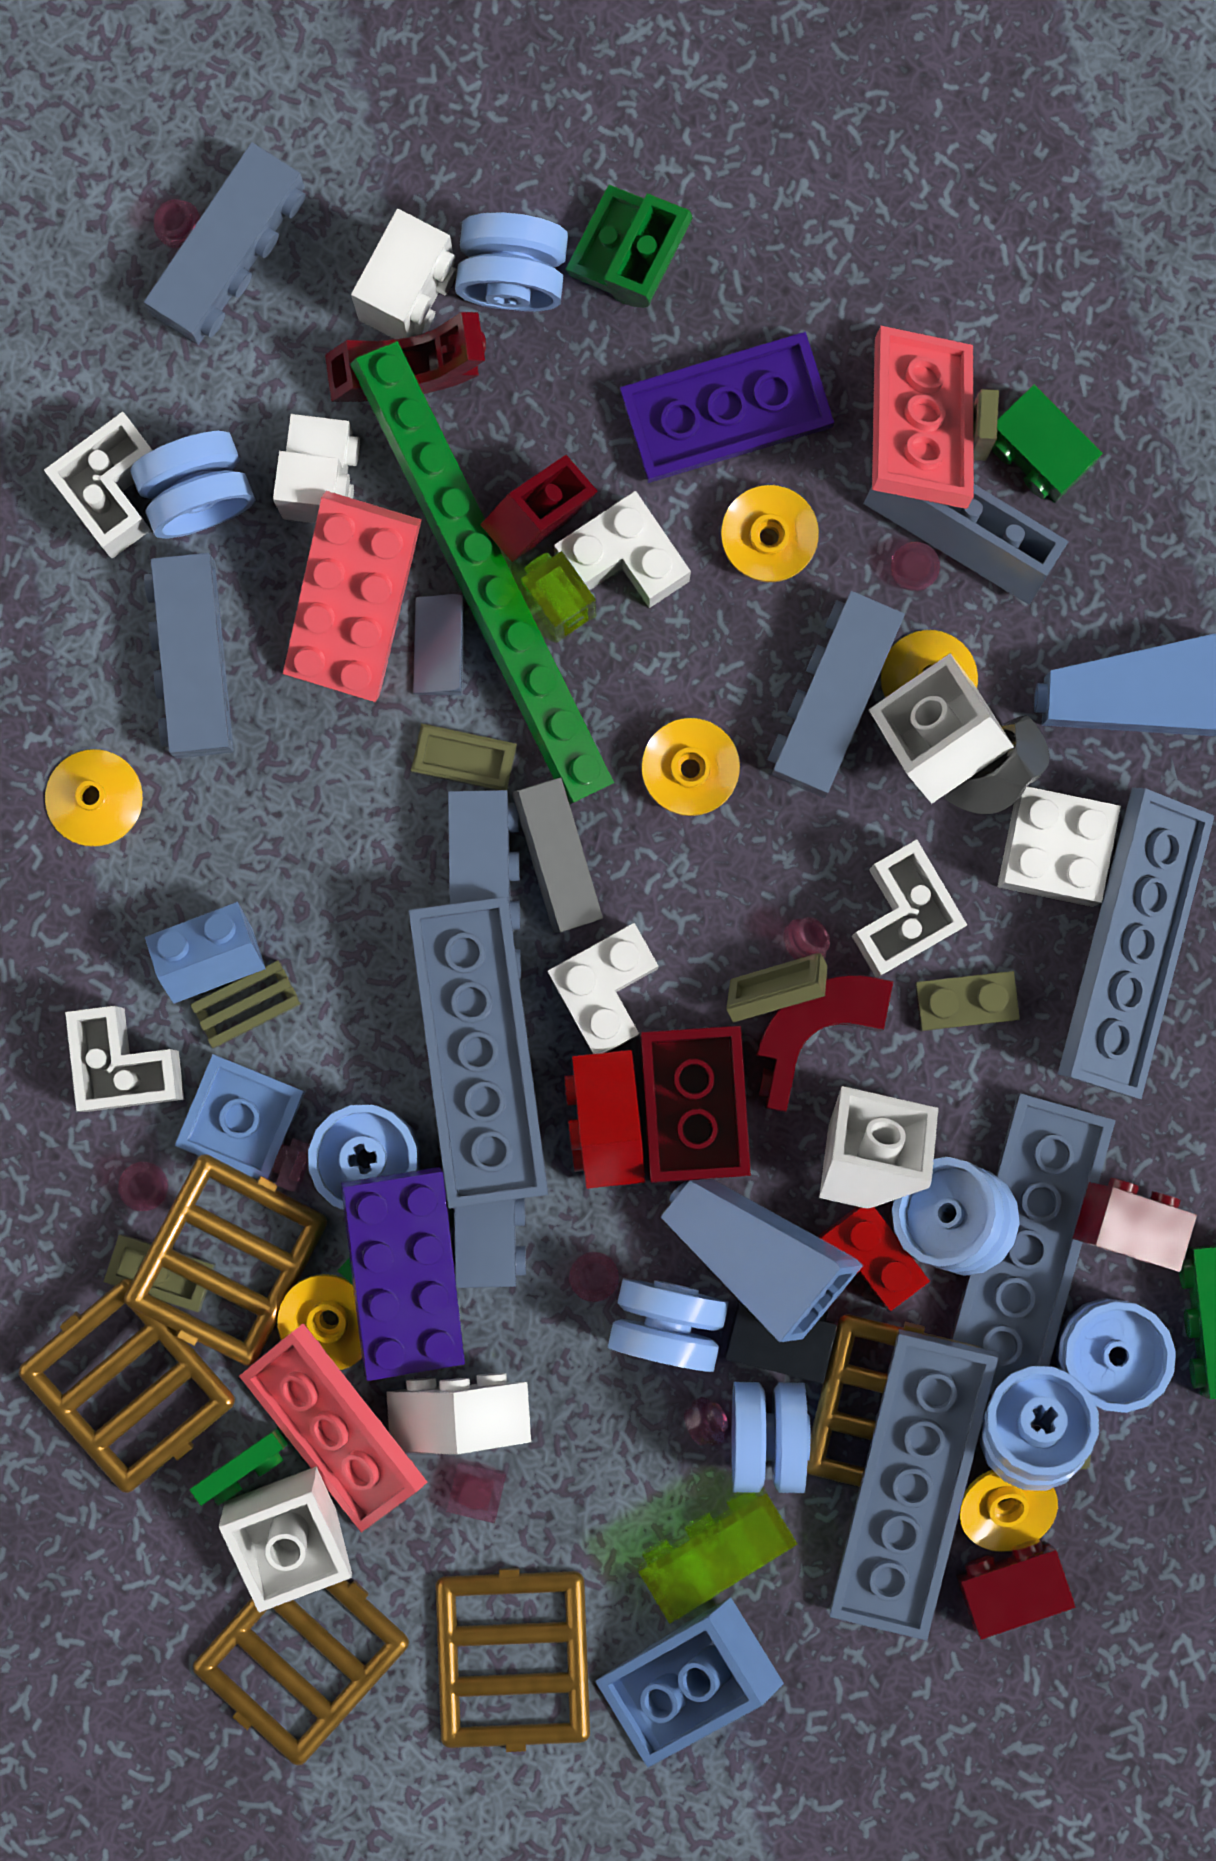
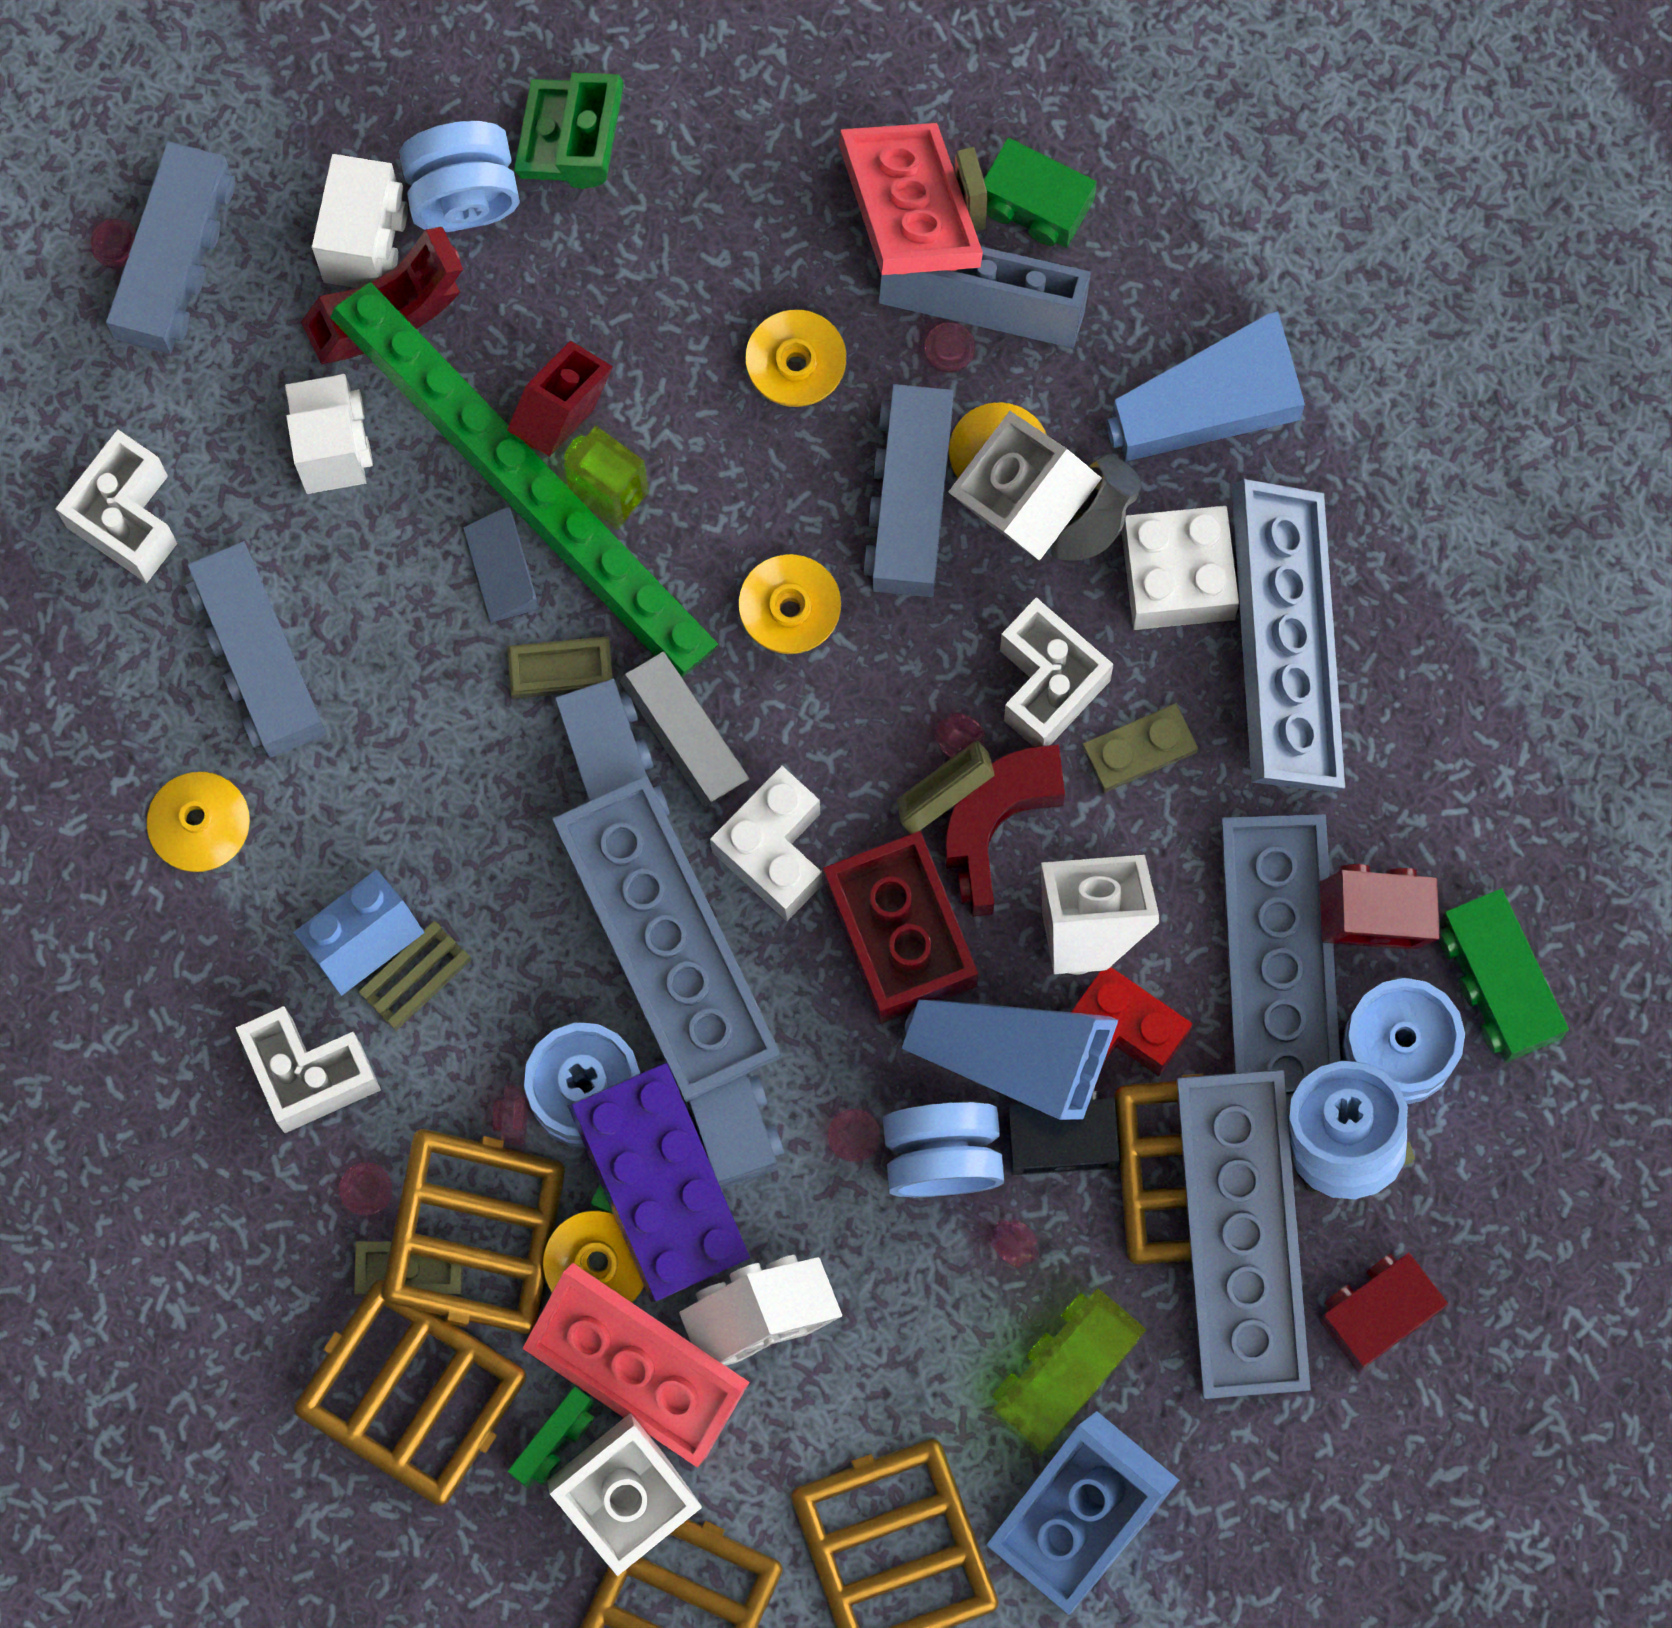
camera: 15 degrees left, 10 degrees down
(192, 484) = (207, 480): light blue wheel -> none
(240, 1117) = (443, 1085): medium blue plate -> none
(351, 596) = (399, 538): coral plate -> none
(476, 1492) = (803, 1390): clear pink plate -> none
(608, 1130) = (818, 967): red brick -> none
(626, 540) = (667, 407): white brick -> none
(726, 407) = (714, 253): dark purple plate -> none
(772, 1437) = (1089, 1227): light blue wheel -> none
(960, 1221) = (1199, 954): light blue wheel -> none
(1007, 1523) = (1349, 1254): yellow dish -> none

